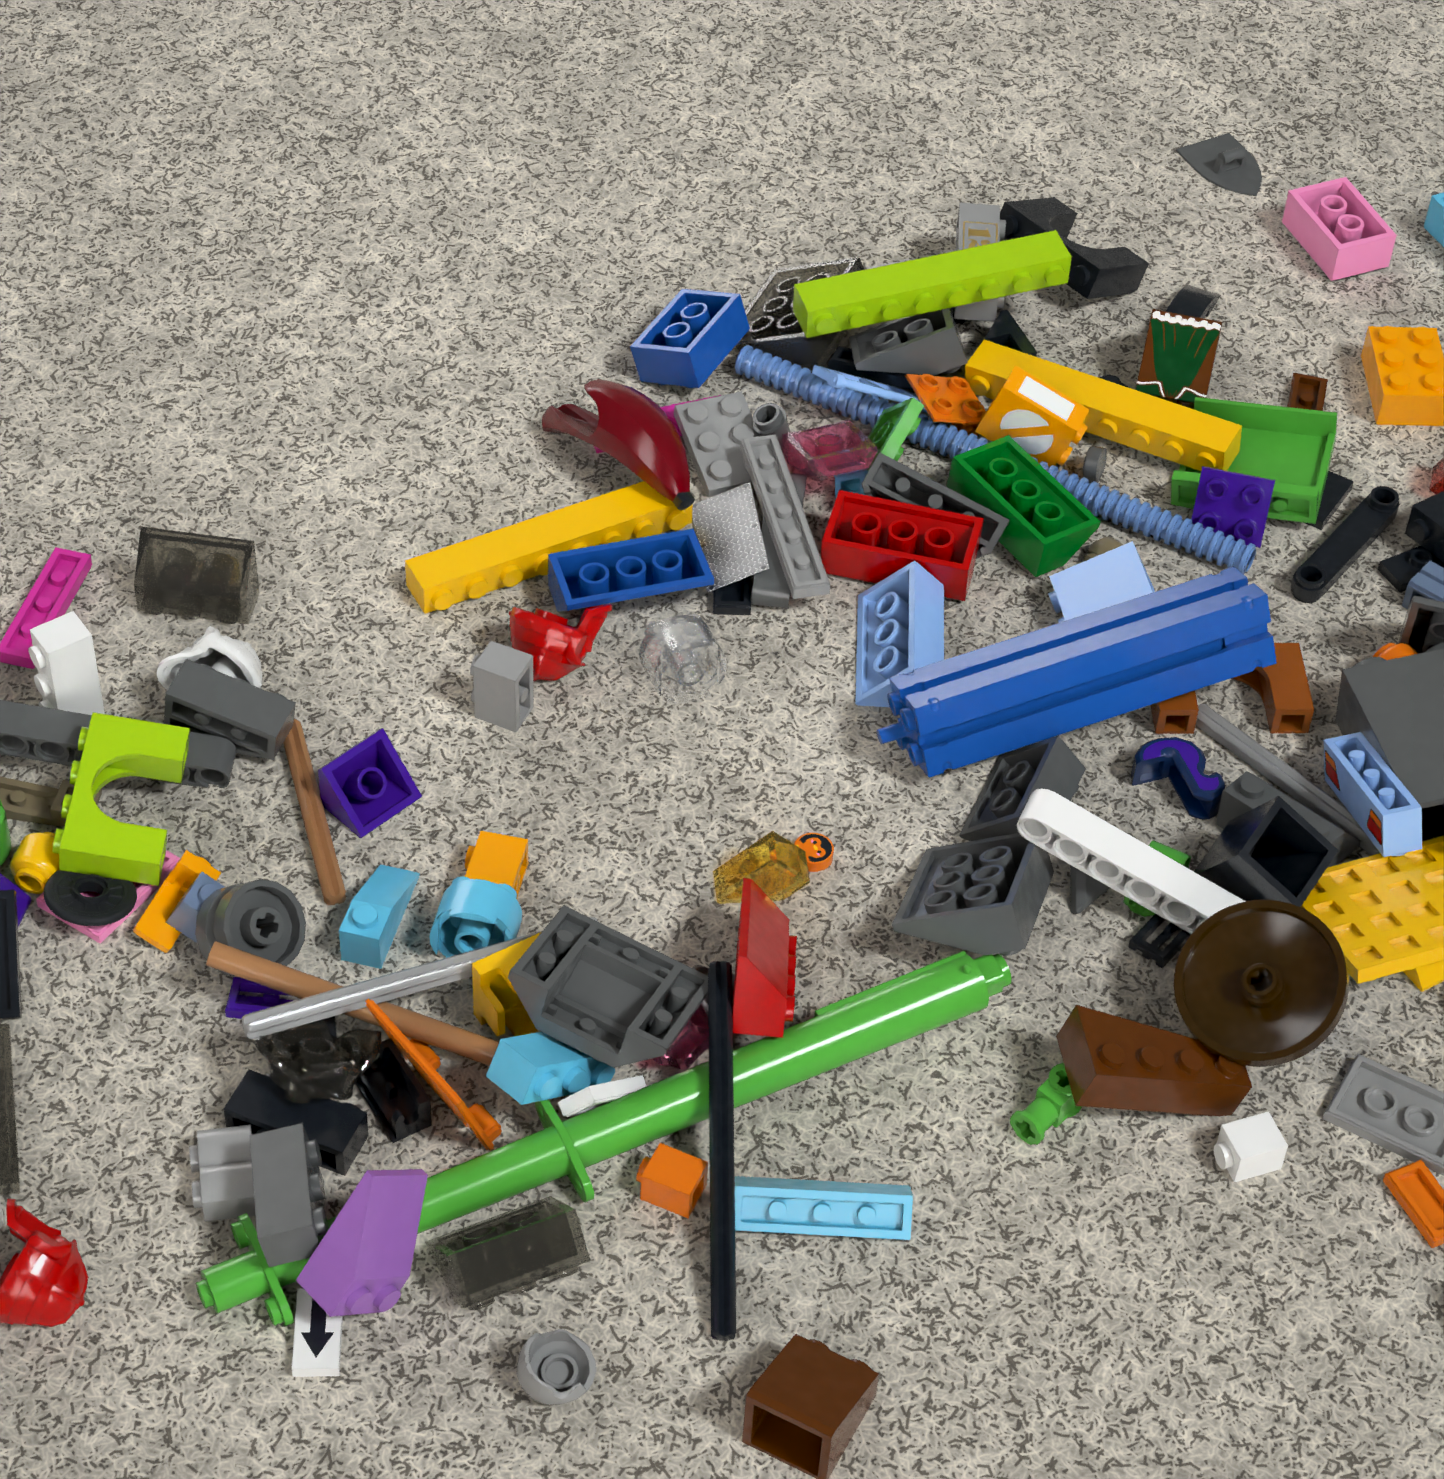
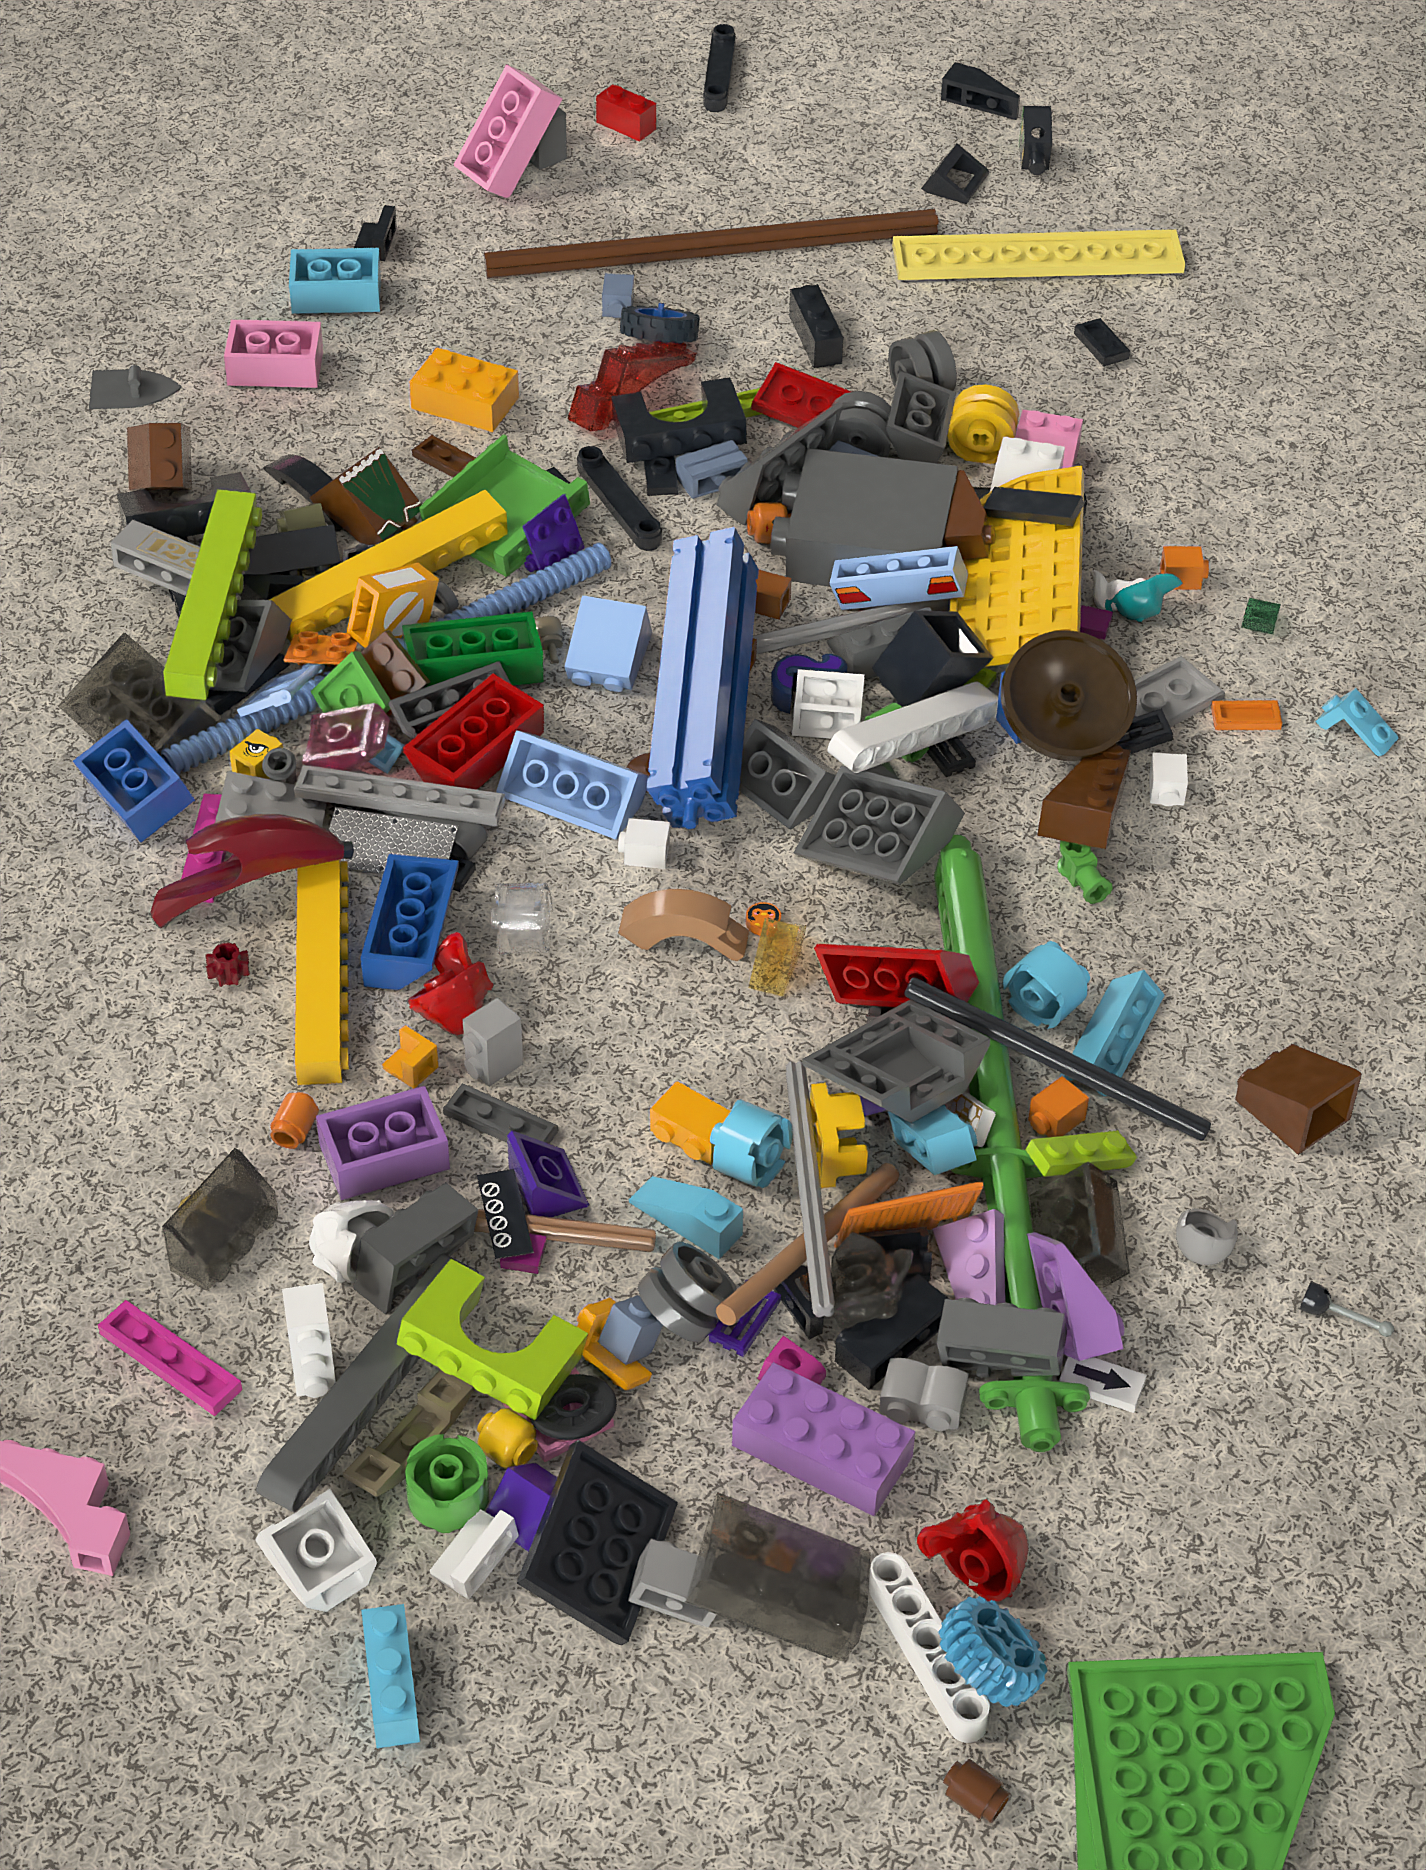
camera: 65 degrees left, 0 degrees up
(130, 1103) = (823, 1438): none -> medium lavender brick
(211, 1053) = (794, 1359): none -> dark pink leg
(276, 806) = (527, 1262): none -> magenta tile
(298, 775) = (504, 1214): none -> black sticker
(345, 655) = (383, 1142): none -> medium lavender brick
(352, 591) = (293, 1120): none -> orange brick
(432, 1155) = (975, 1256): none -> lavender wing
(433, 737) = (496, 1116): none -> dark grey tile
(462, 647) = (414, 1059): none -> light orange panel
(514, 482) = (227, 964): none -> dark red gear
(613, 1215) = (1065, 1153): none -> lime plate
(755, 782) = (687, 914): none -> medium nougat arch
(794, 403) = (249, 753): none -> yellow brick
(836, 1111) = (1046, 985): none -> medium azure brick
(852, 723) = (645, 843): none -> white brick
(935, 444) = (394, 667): none -> reddish brown plate
(1066, 334) = (294, 552): none -> black brick
(1115, 202) = (159, 457): none -> reddish brown slope
(1117, 330) = (300, 518): none -> olive brick
(1156, 803) = (826, 703): none -> white slope
(1300, 1100) = (1142, 739): none -> black tile

